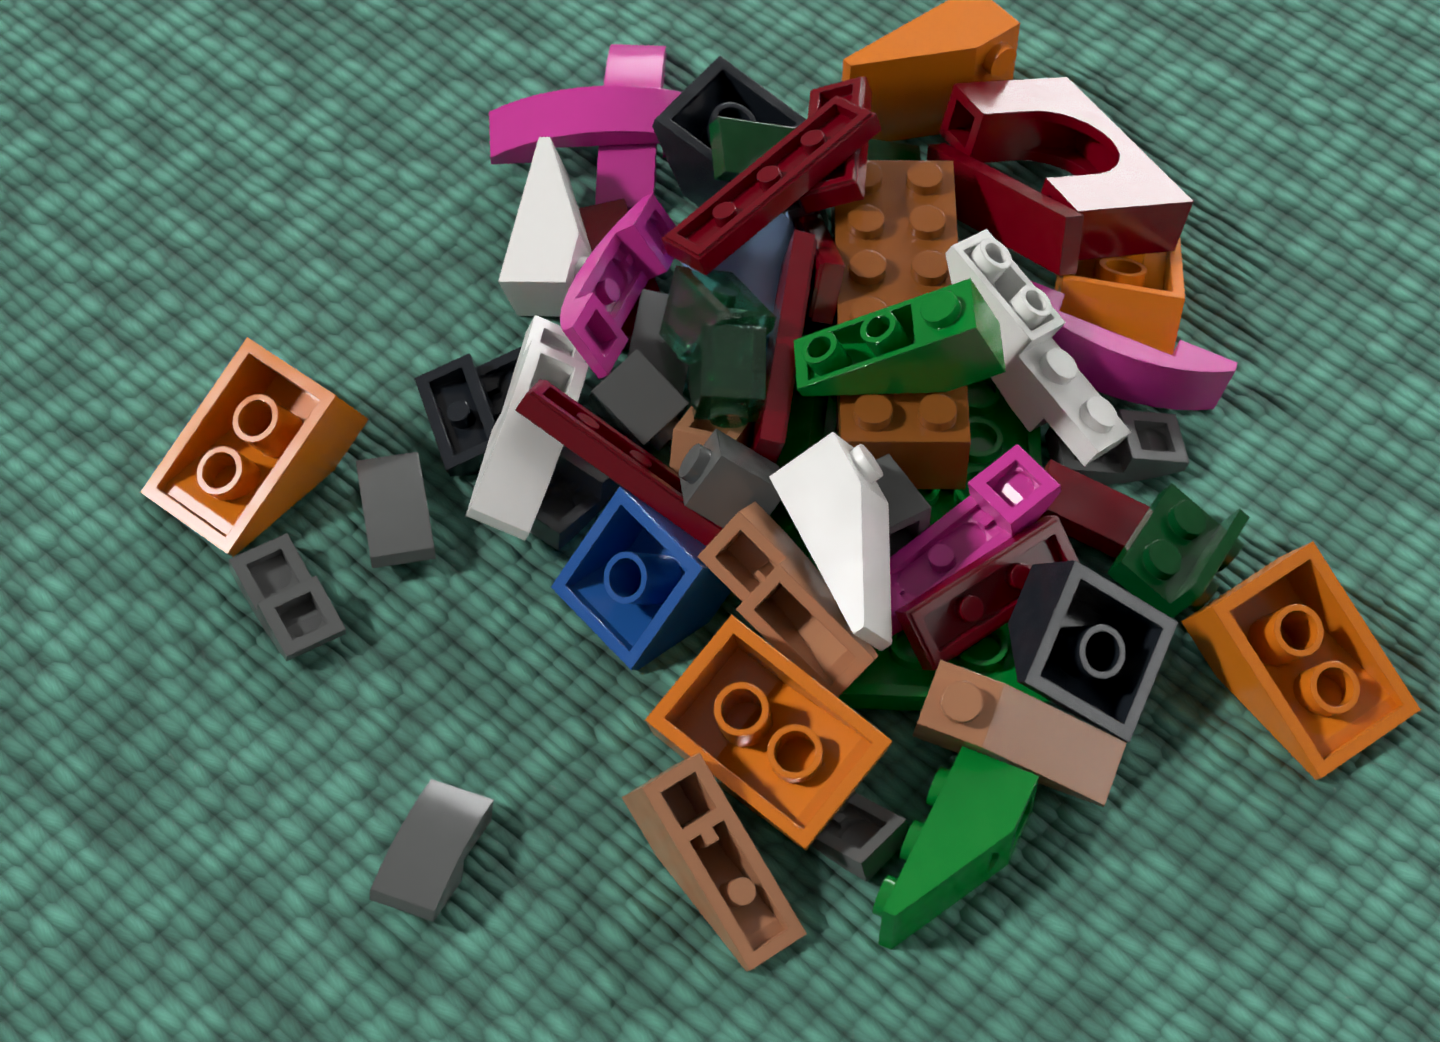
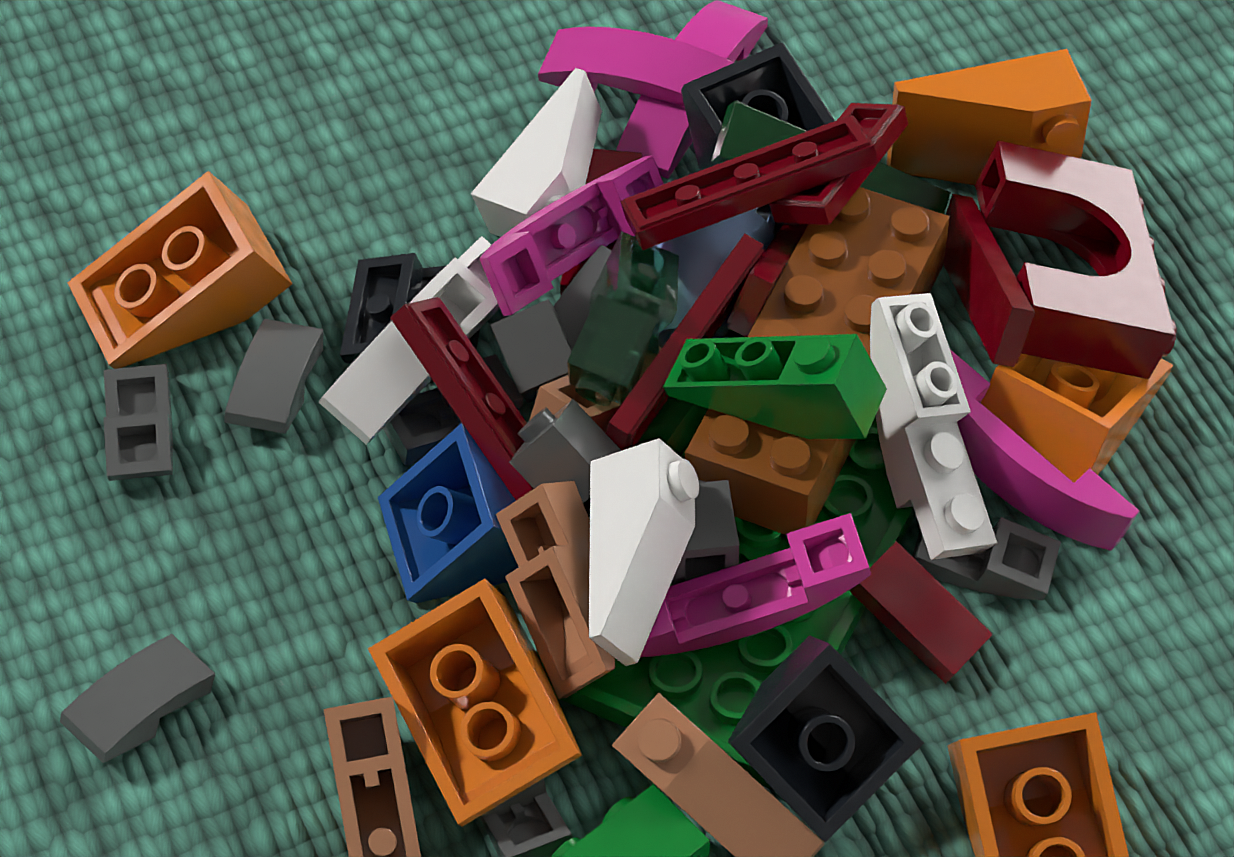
camera: 25 degrees right, 0 degrees up
(980, 595) = (749, 647): dark red tile -> none
(1177, 553) = (973, 675): dark green bracket -> none

